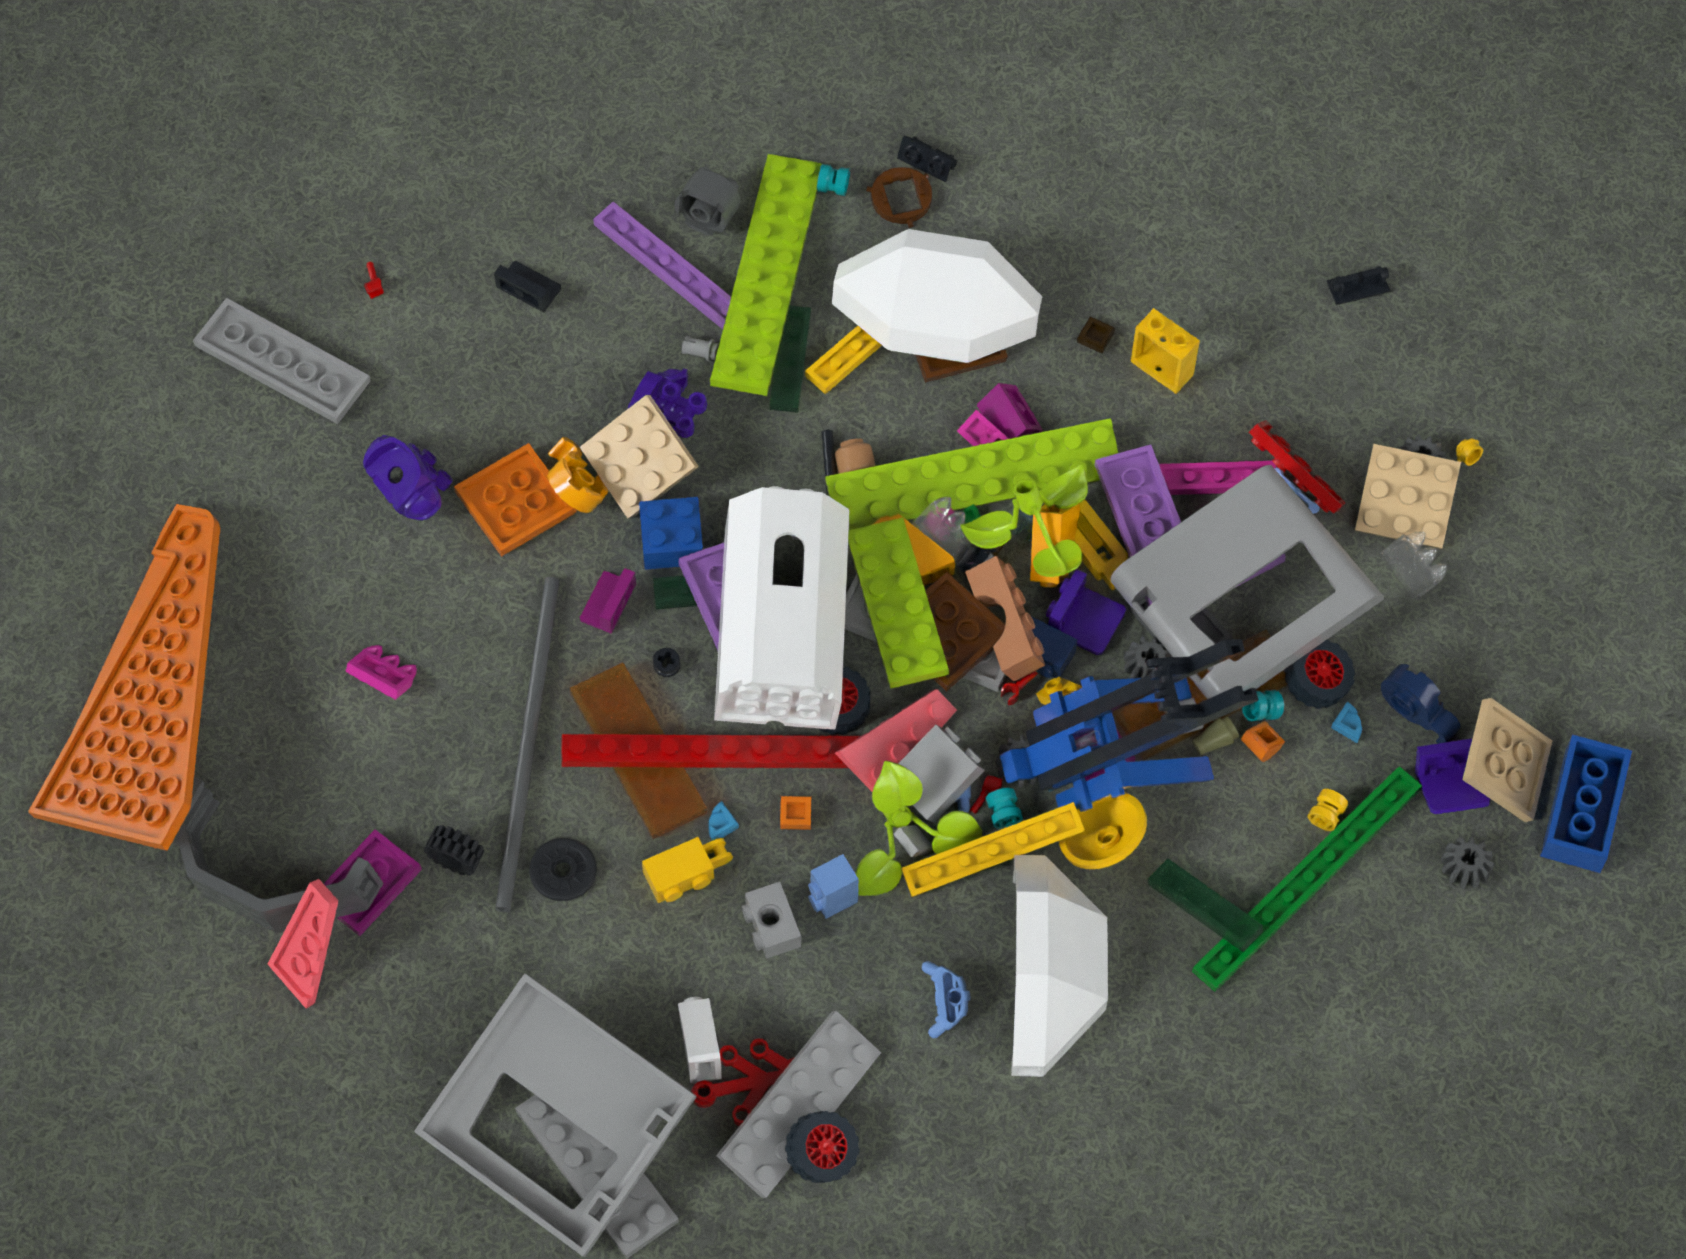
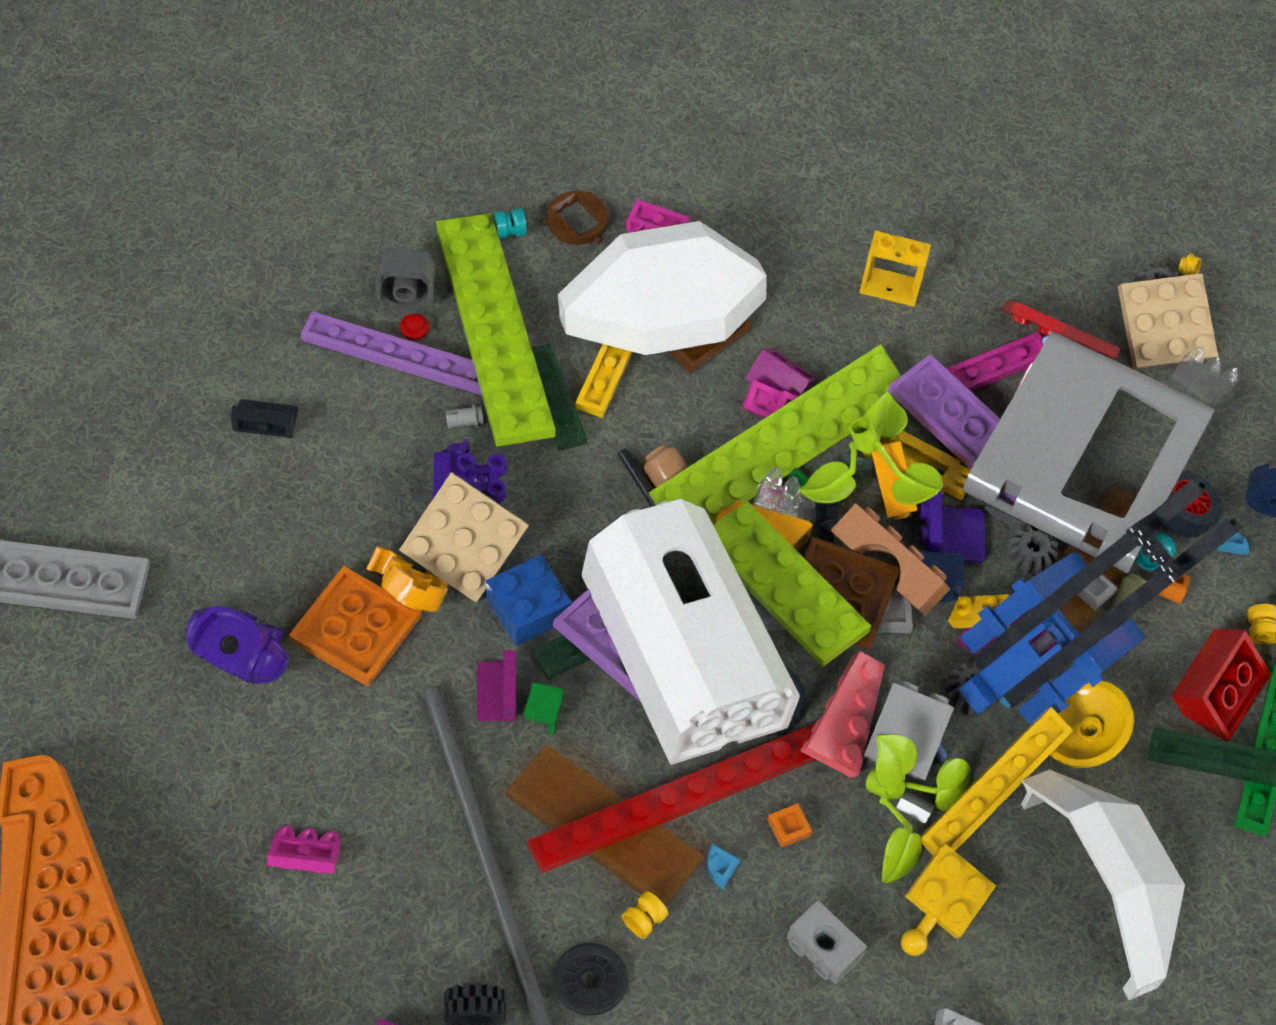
camera: 30 degrees left, 5 degrees down
(374, 286) = (110, 472): red hand -> none
(638, 630) = (544, 705): none -> green panel
(639, 833) = (645, 915): none -> yellow wheel
(671, 669) = (592, 720): black bush -> none
(684, 868) = (712, 927): yellow brick -> none
(699, 248) = (414, 327): none -> red plate
(833, 887) = (872, 883): medium blue brick -> none
(899, 924) = (949, 895): none -> yellow plate
(926, 159) = (583, 178): black hinge -> none
(950, 997) = (1036, 947): medium blue piece -> none
(970, 223) = (649, 216): none -> dark pink plate
(990, 784) = (956, 724): red hand -> none
(1004, 808) = (981, 740): teal wheel -> none
(1018, 686) = (927, 622): red hand -> none
(1096, 335) = (817, 279): dark brown tile -> none
(1255, 846) = (1222, 682): none -> red slope
(1359, 285) = (1017, 159): black hinge -> none

